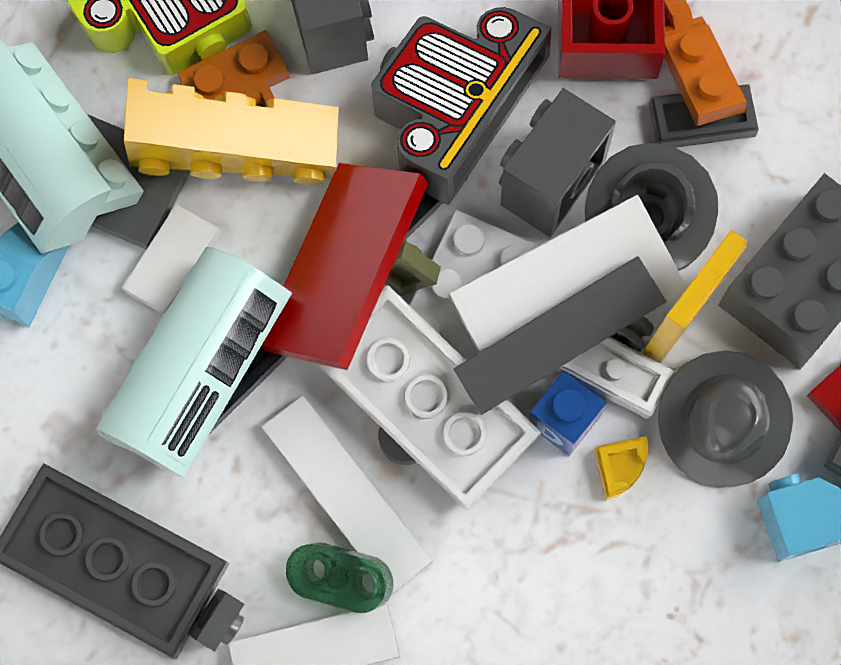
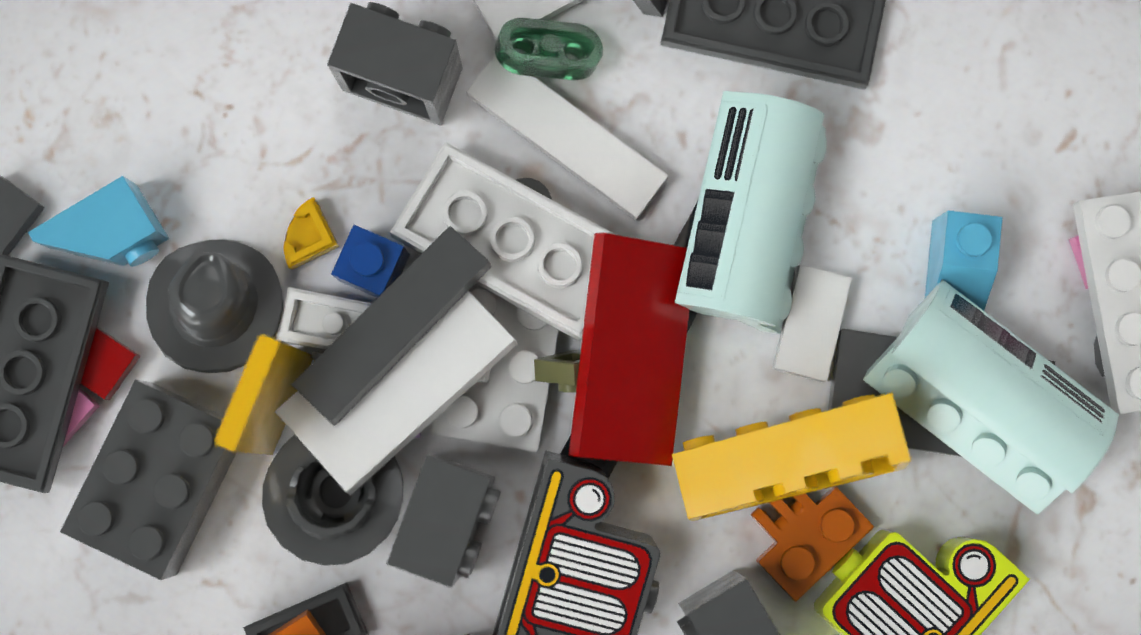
camera: 155 degrees right, 10 degrees up
(491, 593) = (396, 61): none -> dark grey brick

